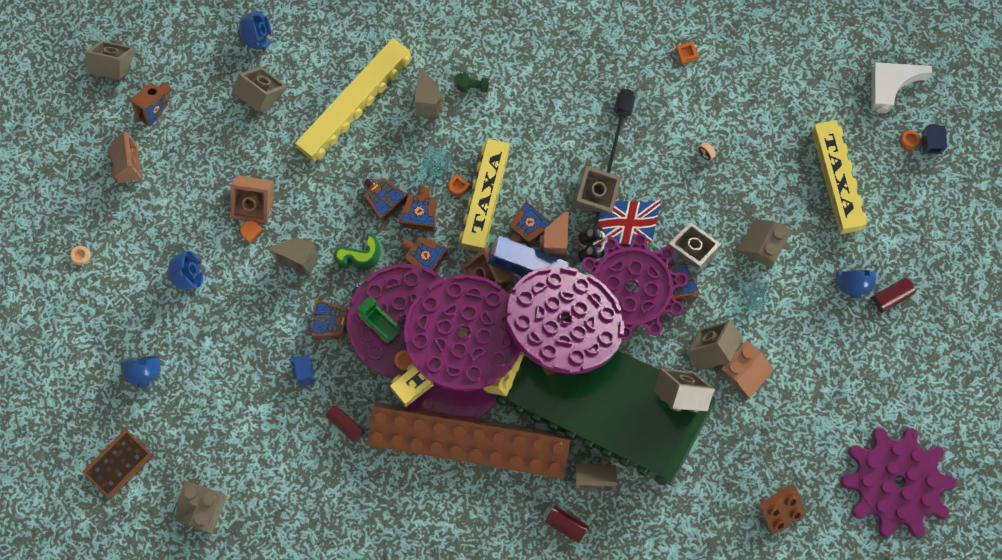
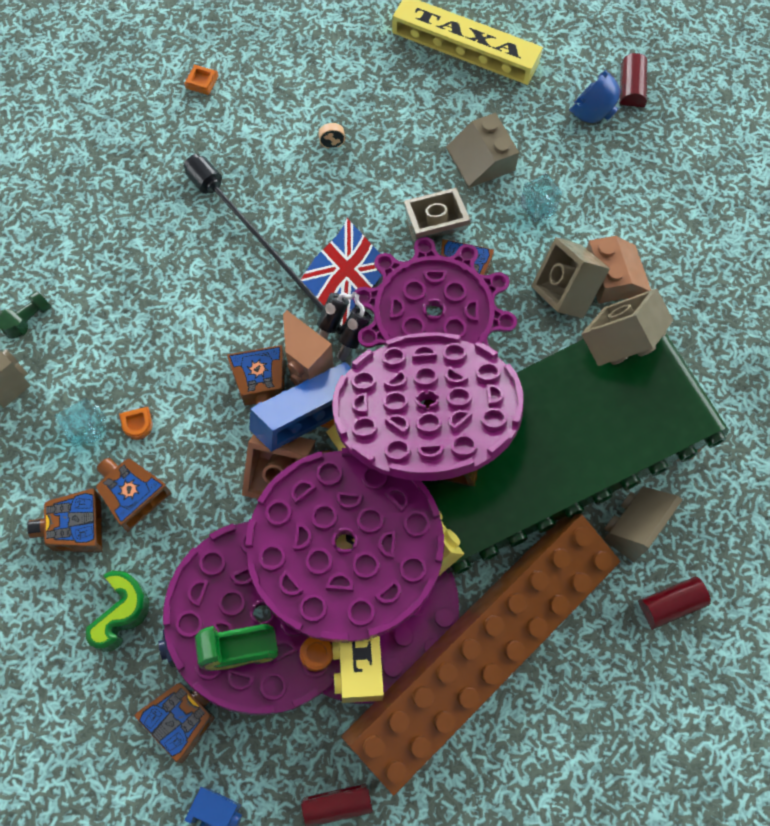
camera: 60 degrees left, 5 degrees down
(296, 254) = (44, 698): dark tan slope -> none
(424, 253) = (187, 525): torso -> none
(485, 196) = (179, 399): light yellow brick -> none
(596, 190) = (280, 272): dark tan slope -> none

